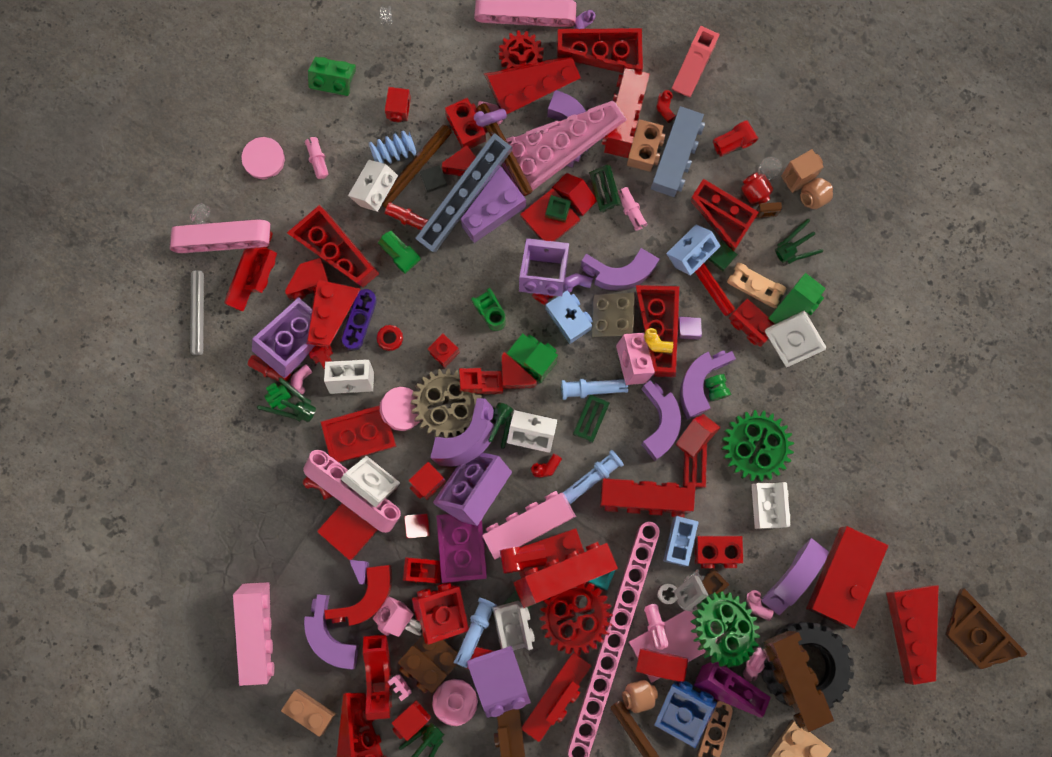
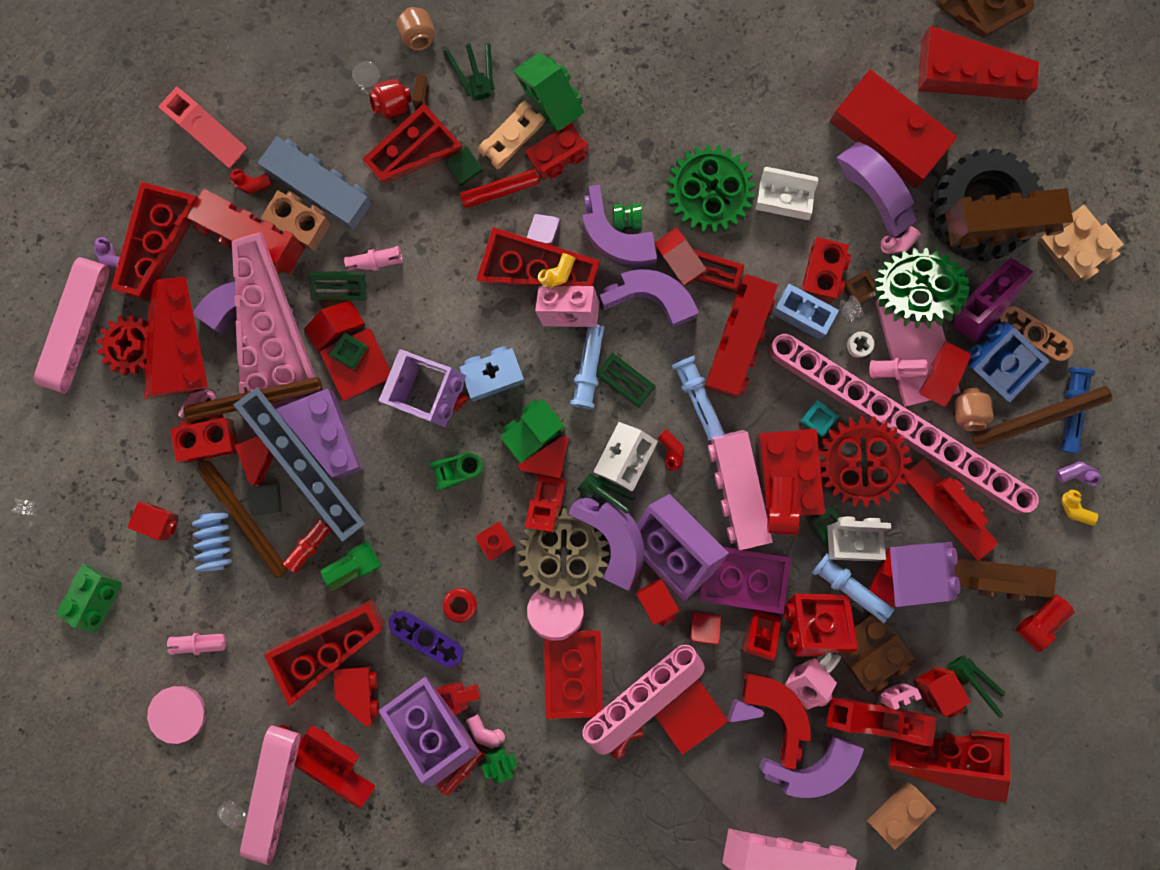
camera: 70 degrees left, 5 degrees up
(197, 313) = (361, 846): light grey axle -> none
(301, 410) = (525, 740): dark green plant -> none
(328, 311) = (408, 675): red wing -> none
(349, 376) = (498, 669): white brick -> none
(370, 481) = (638, 673): white tile -> none
(373, 185) = (254, 579): white brick -> none
(455, 702) = (928, 632): bright pink tile -> none
(489, 118) = (207, 404): medium lavender arm -> none
(565, 575) = (819, 460): red wedge -> none
(576, 279) = (446, 351): medium lavender arm -> none
(613, 314) = (503, 318): dark tan hinge -> none
(621, 278) = (460, 297): medium lavender arch -> none
(691, 593) = (871, 316): light grey bracket -> none
(693, 249) = (448, 197): light blue brick -> none
(740, 136) = (317, 100): red piece -> none
(754, 665) = (972, 264): bright pink axle -> none
(795, 339) = (593, 105): white tile -> none
(802, 170) = (383, 35): nougat brick -> none

